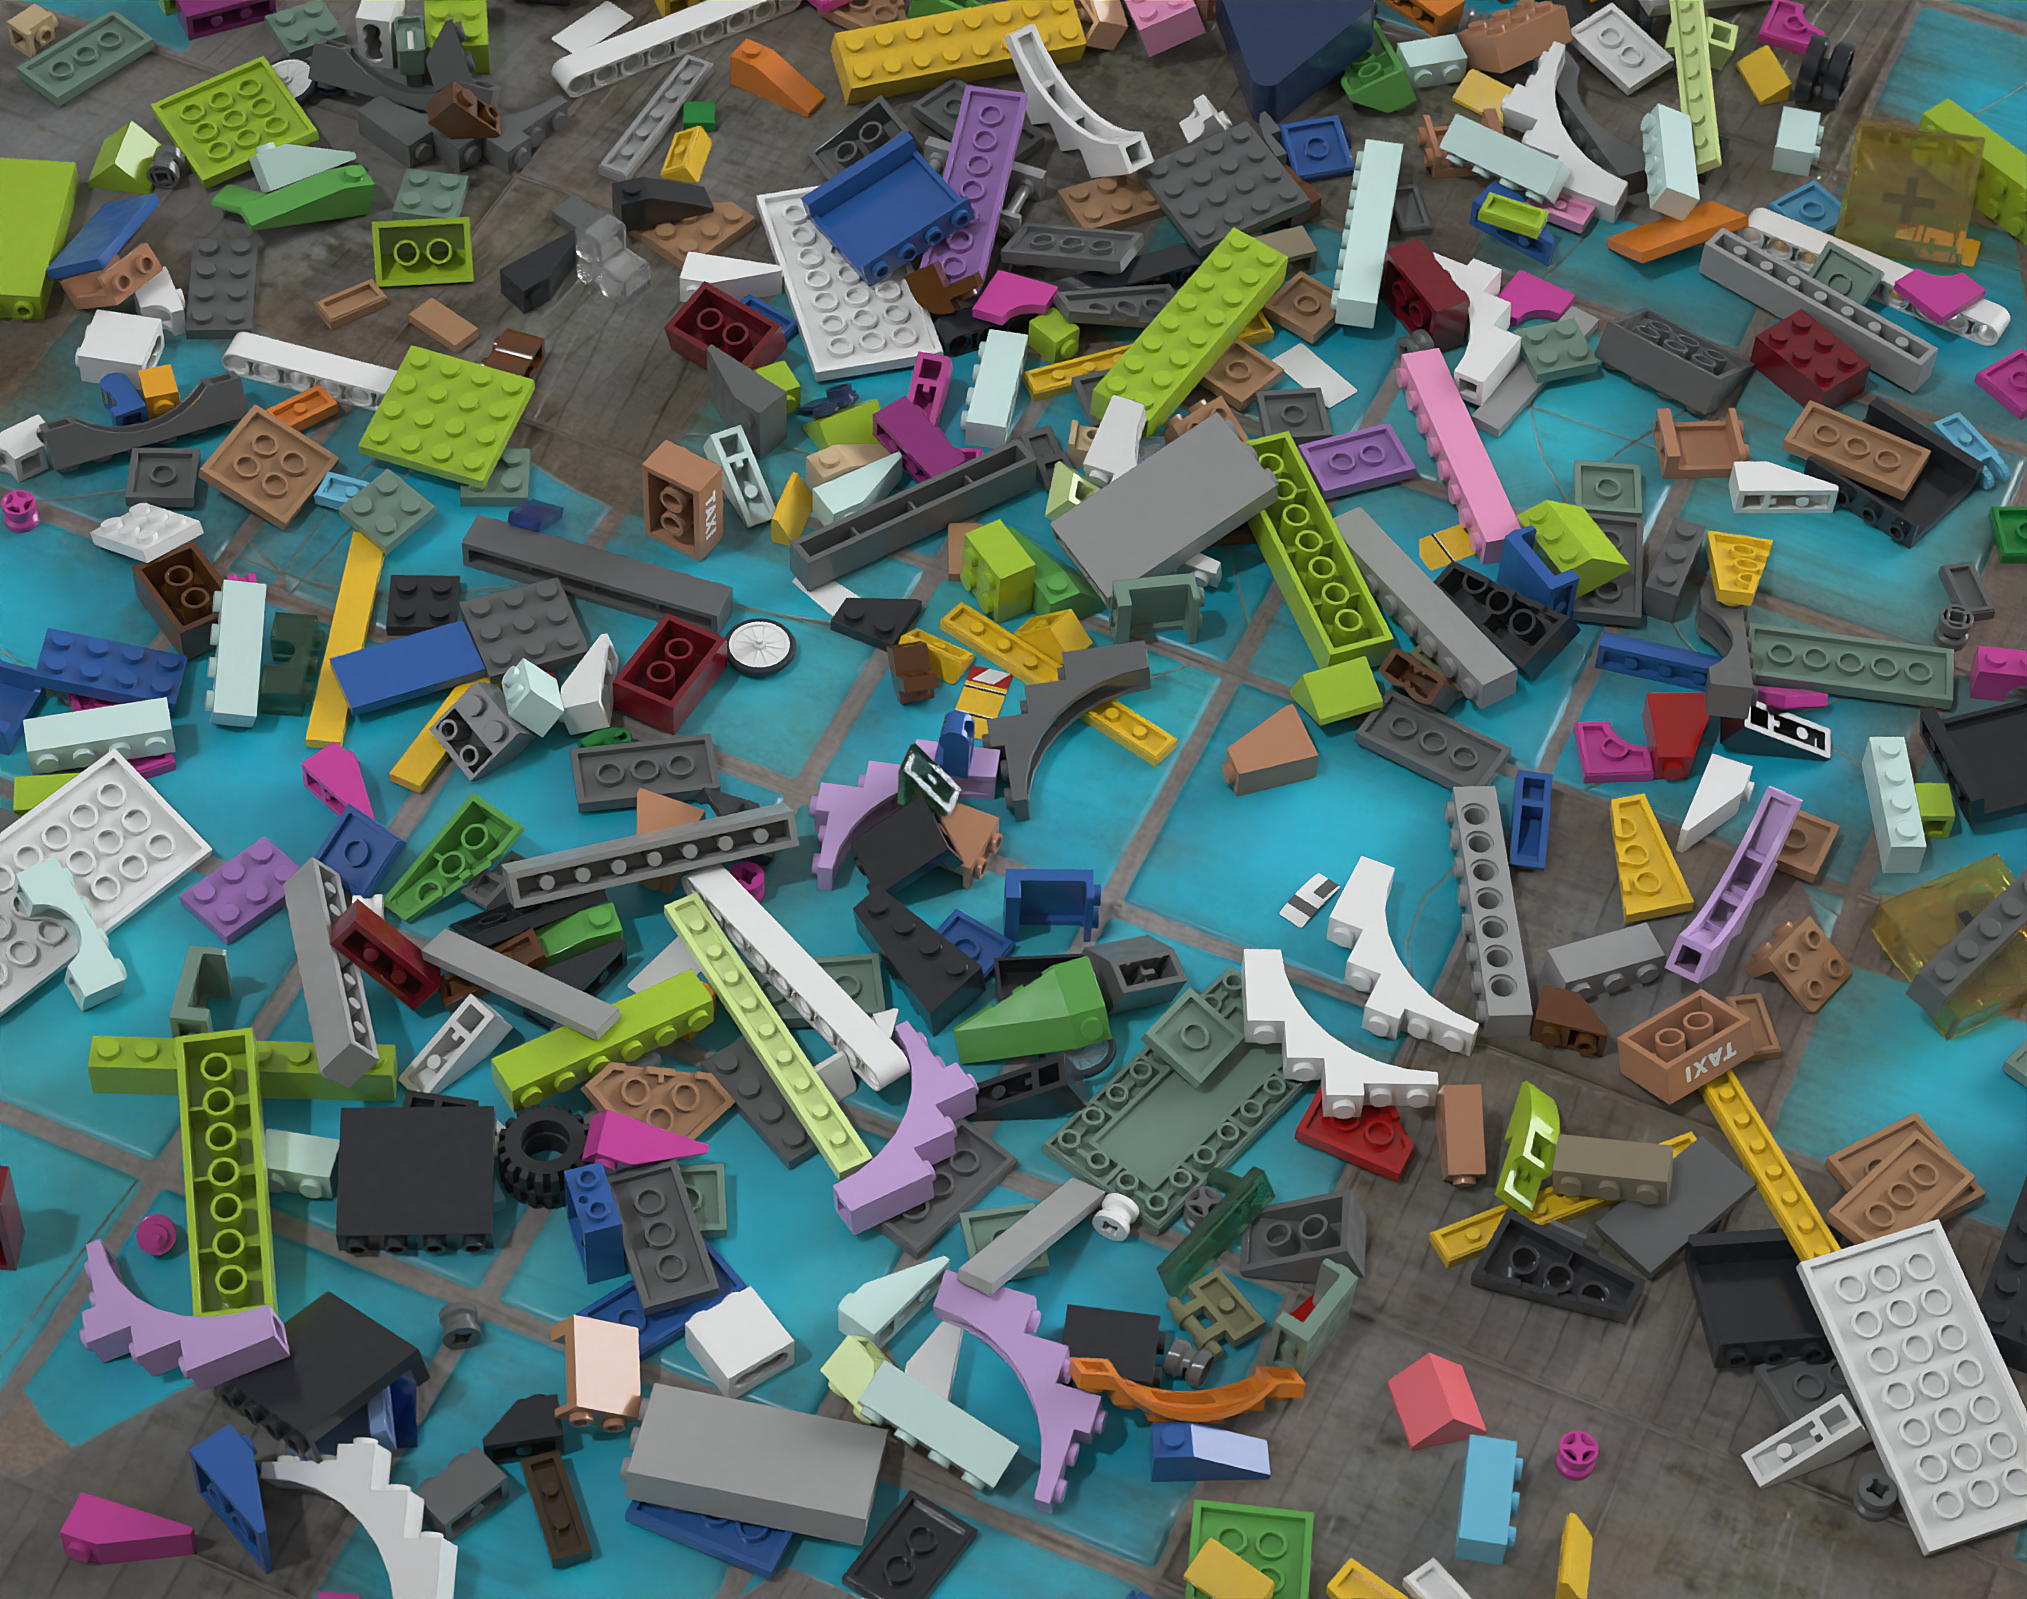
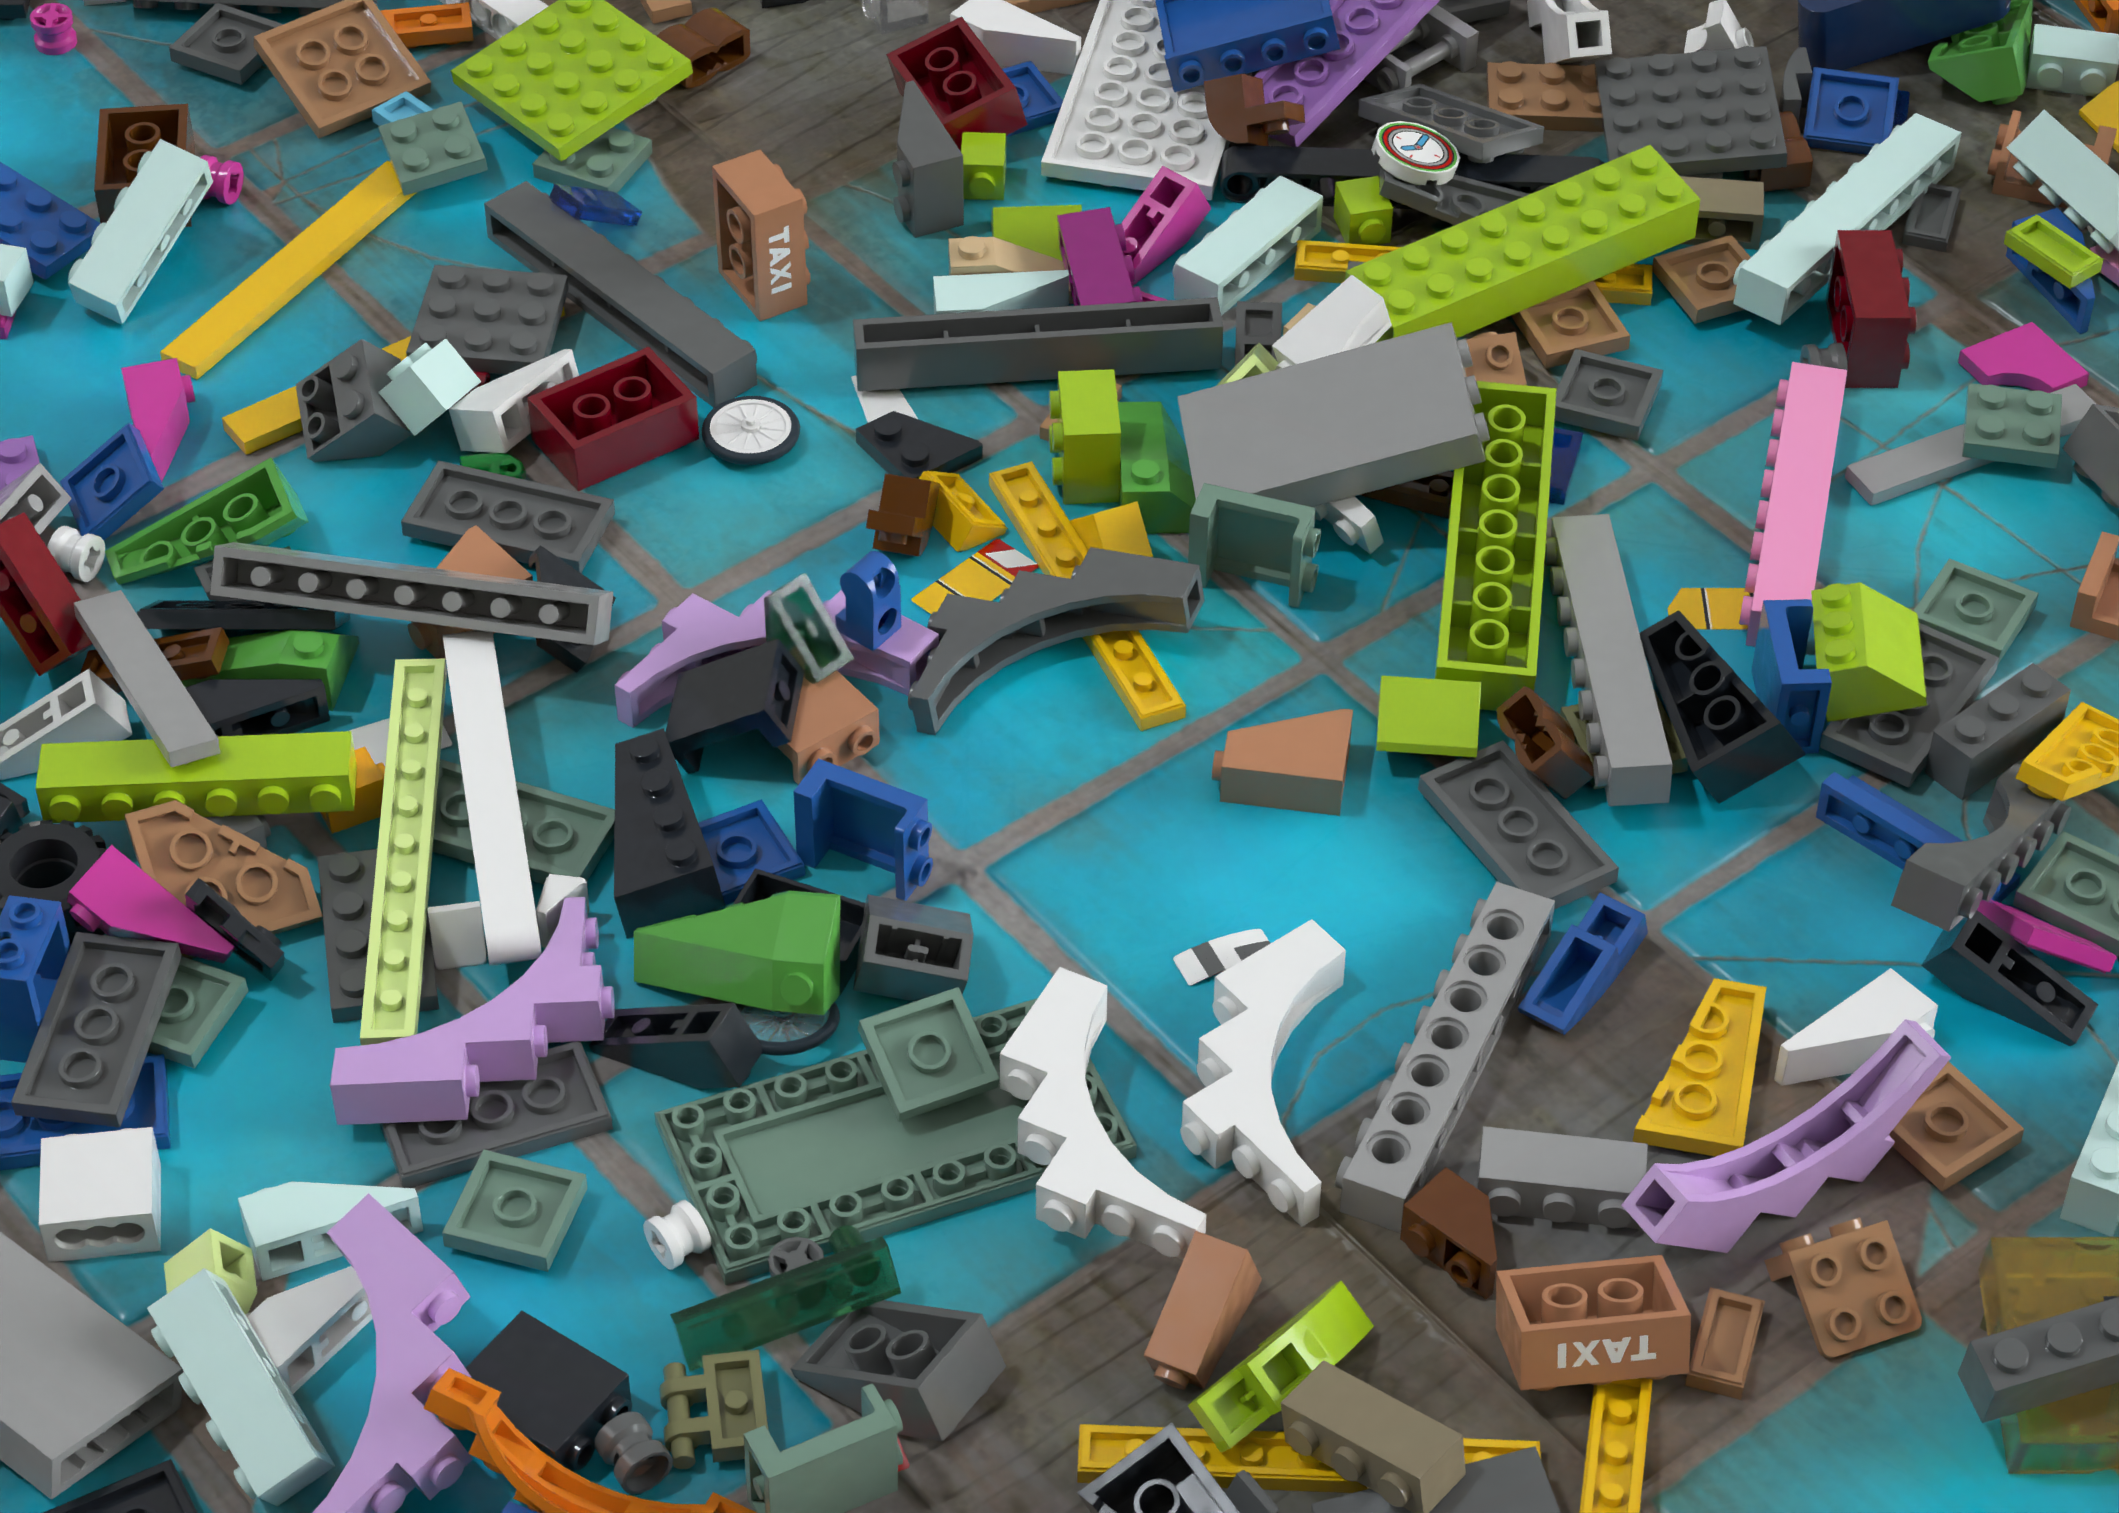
camera: 30 degrees right, 5 degrees down
(146, 532) = (156, 85): white plate -> none
(288, 686) = (183, 291): clear green arch -> none
(407, 667) = (324, 313): blue tile -> none
(421, 603) = (402, 260): black plate -> none
(720, 1138) = (251, 943): none -> black wing
(740, 476) = (866, 240): light aqua slope -> none
(752, 873) = (528, 680): dark pink wheel -> none
(791, 511) = (902, 292): yellow slope -> none
(837, 398) = (1046, 195): dark blue plate -> none
(1011, 296) = (1327, 147): dark pink tile -> none
(1030, 1236) = (523, 1204): light grey tile -> none
(1075, 282) = (1415, 153): none -> tile
(1312, 372) = (1673, 349): white sticker -> none
(1357, 461) = (1654, 469): medium lavender plate -> none
(1368, 1141) = (1082, 1279): red plate -> none
(1490, 348) = (1928, 381): white arch -> none
(1608, 757) = (1756, 930): dark pink tile -> none
(1674, 731) = (1863, 933): red slope -> none

